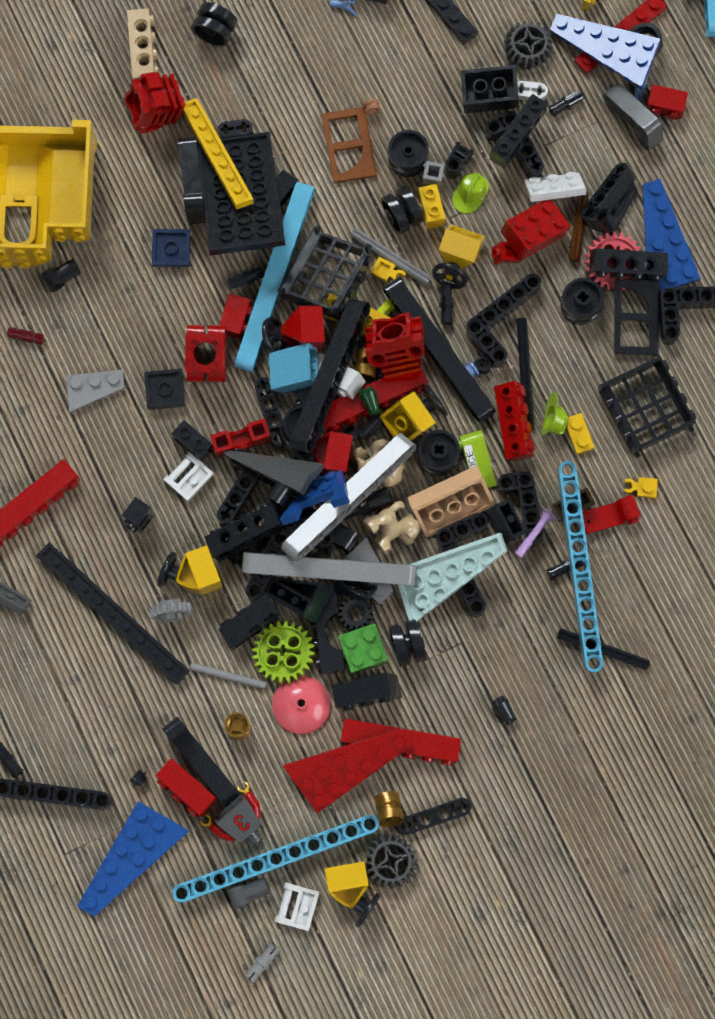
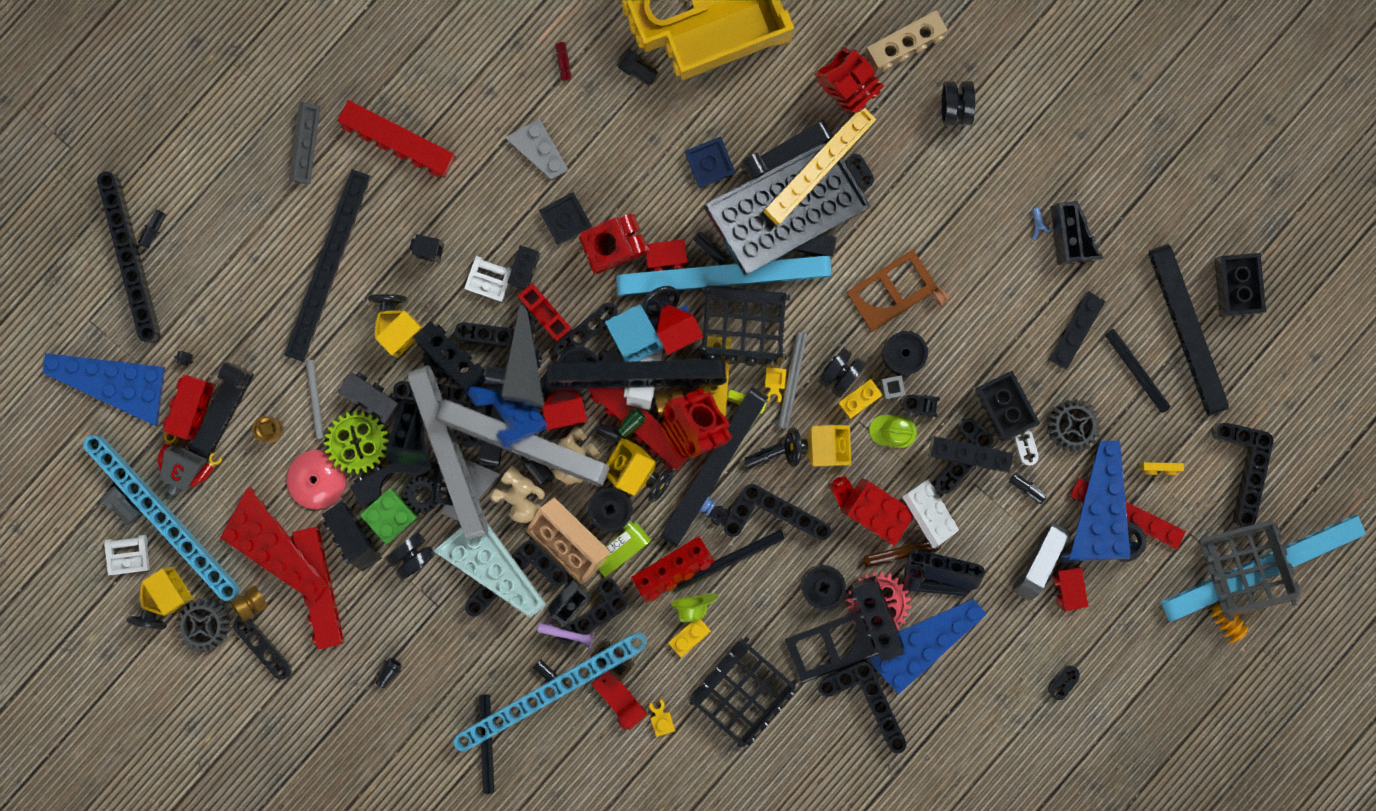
camera: 65 degrees right, 10 degrees up
(170, 610) = (349, 319): light grey gear -> none
(262, 963) = (64, 544): light grey pin -> none
(352, 430) = (596, 416): black plate -> none

